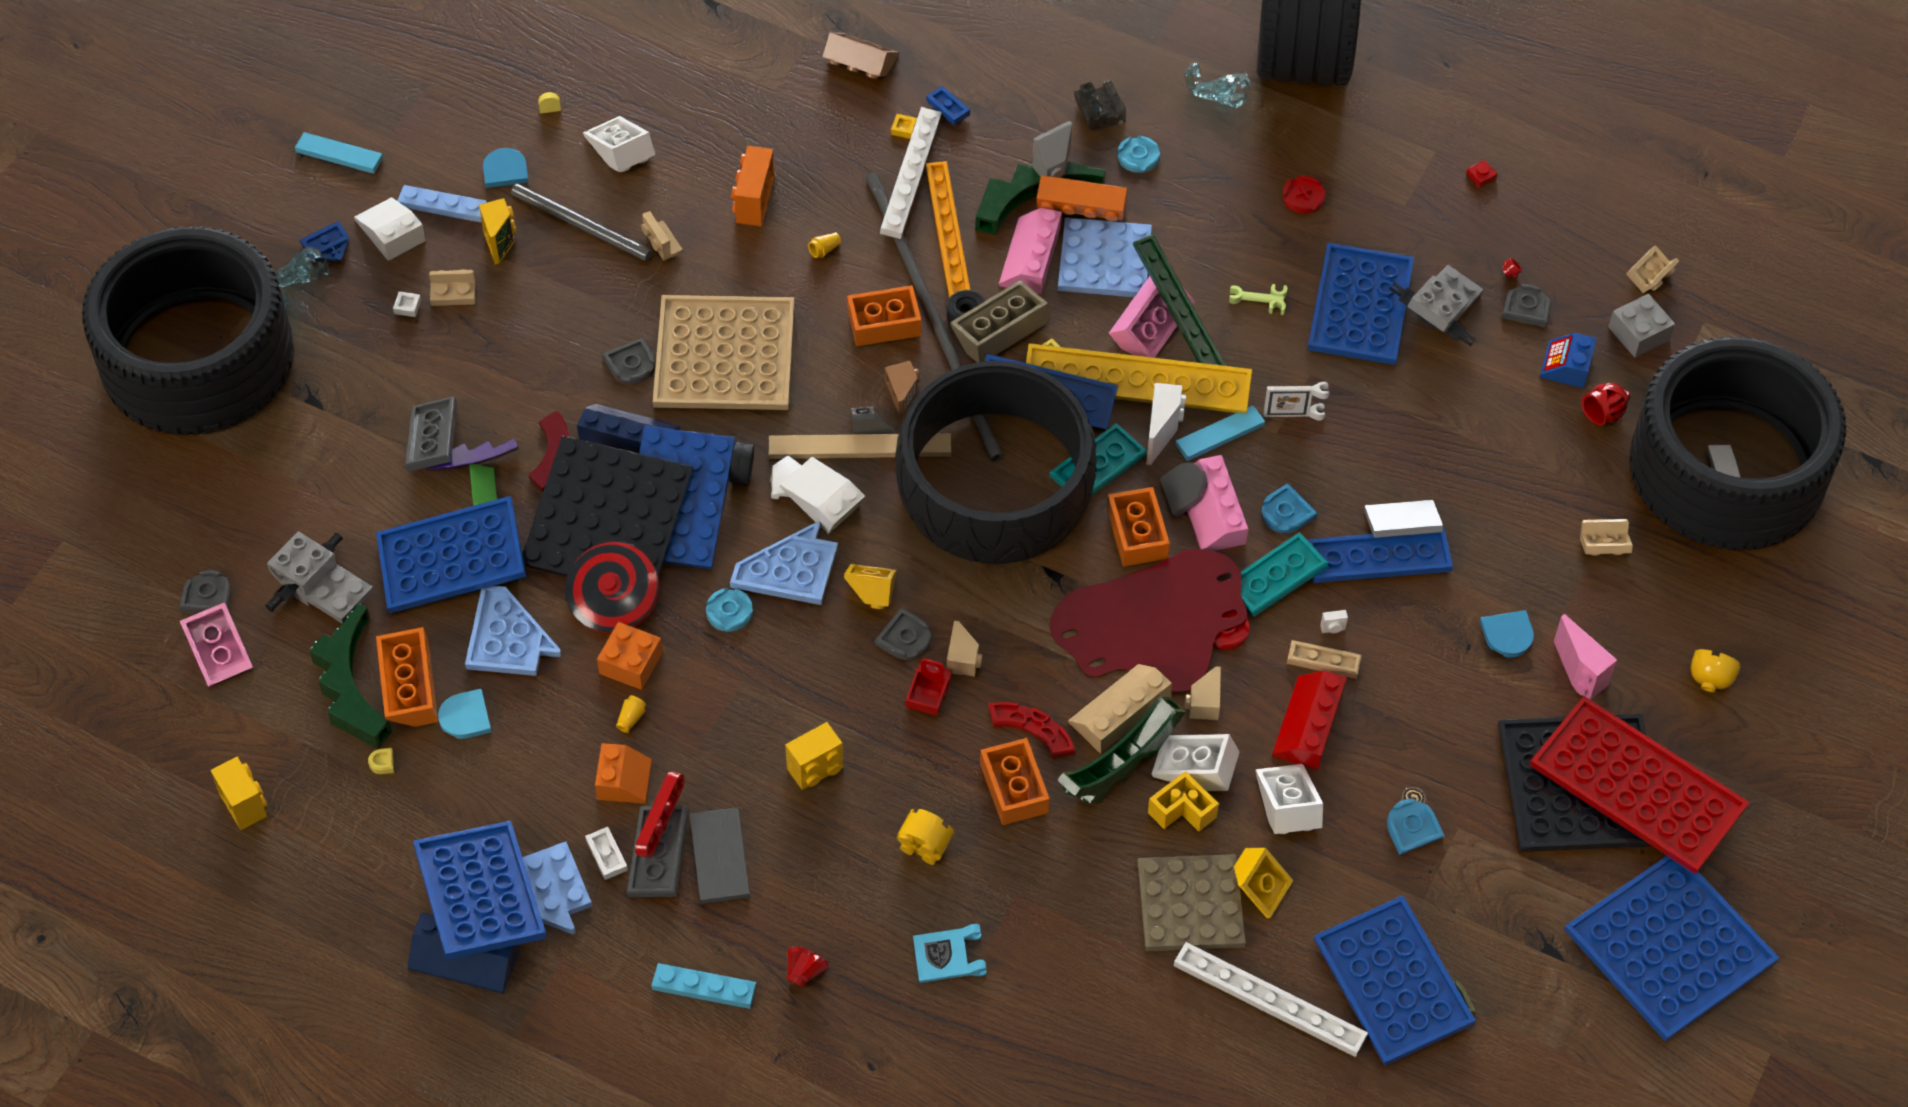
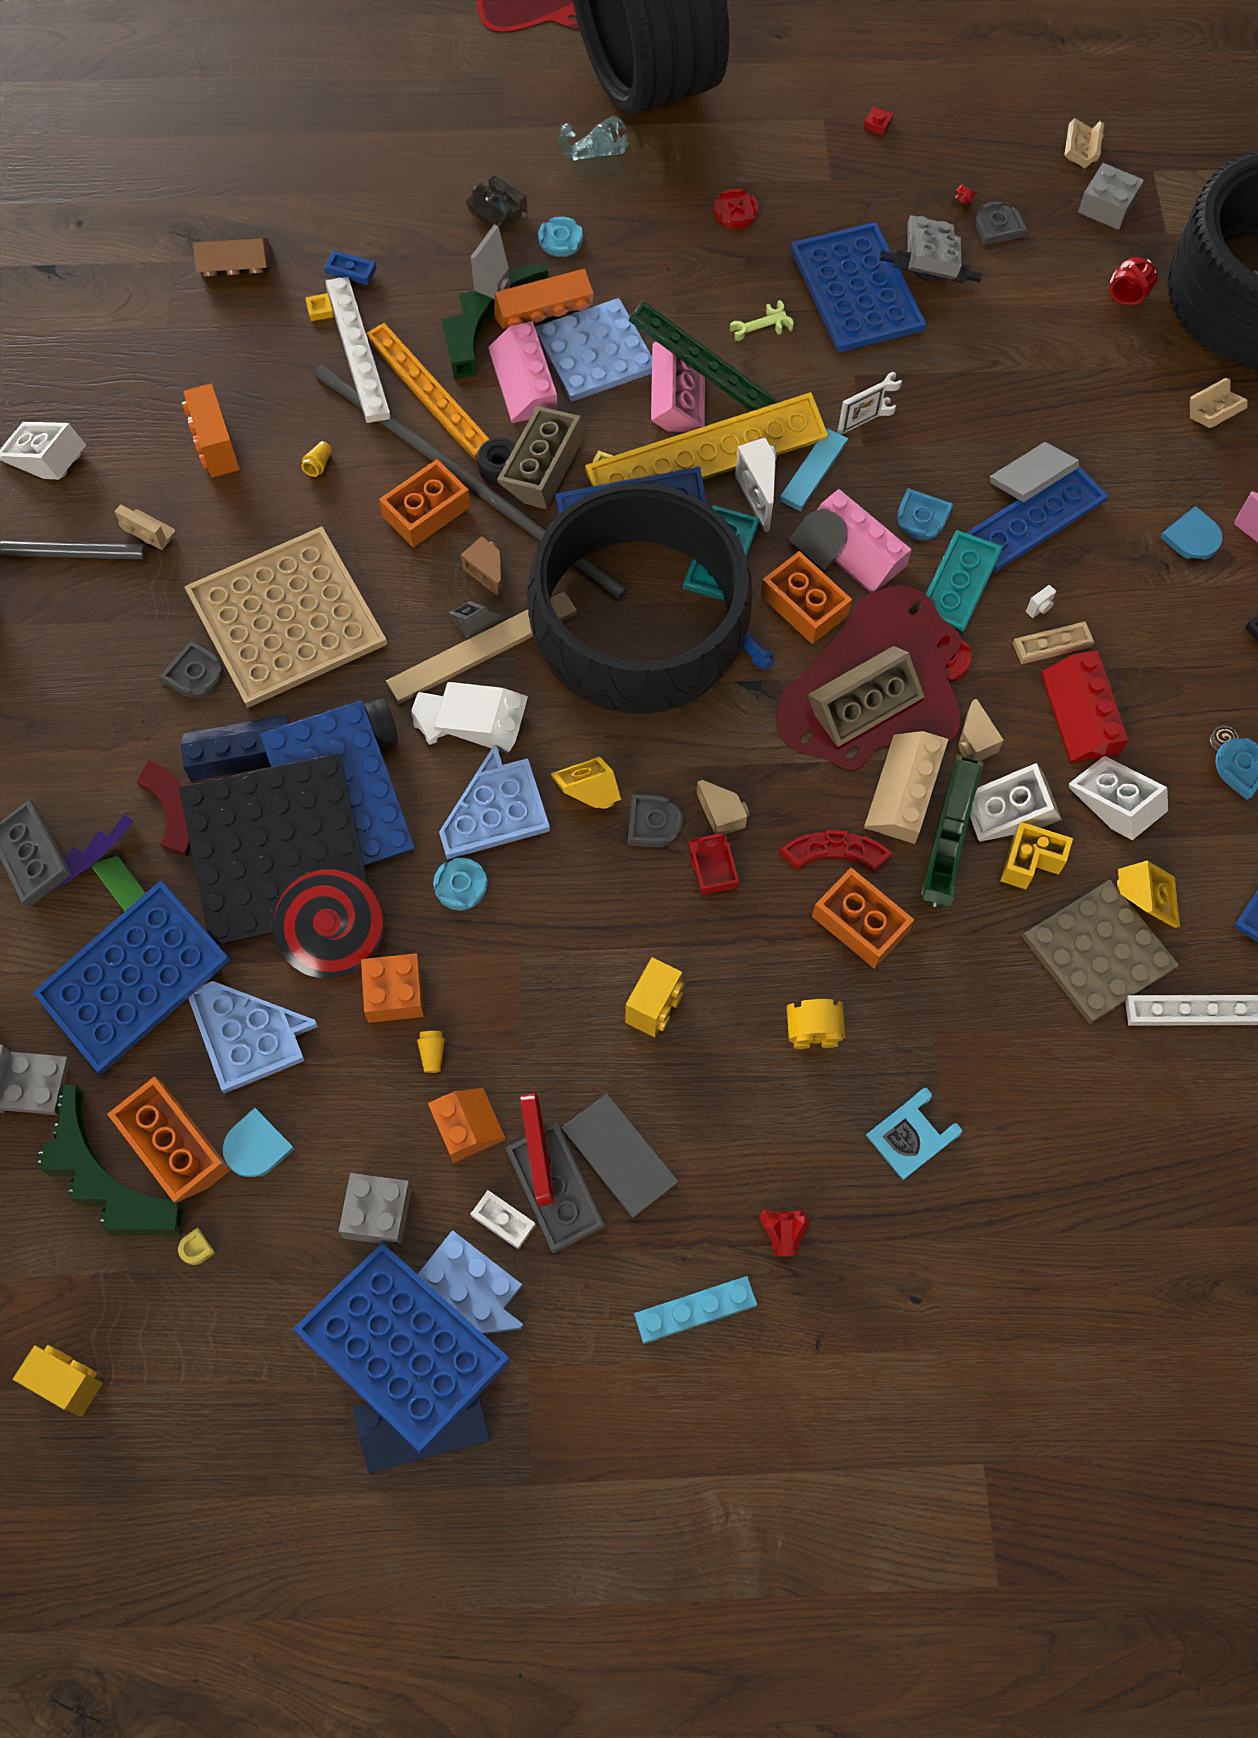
camera: 30 degrees left, 10 degrees up
(521, 798) = (375, 1209): none -> light grey brick
(1073, 555) = (760, 656): none -> blue animal
(1134, 623) = (866, 695): none -> dark tan slope
(1568, 359) = (1071, 254): blue slope -> none

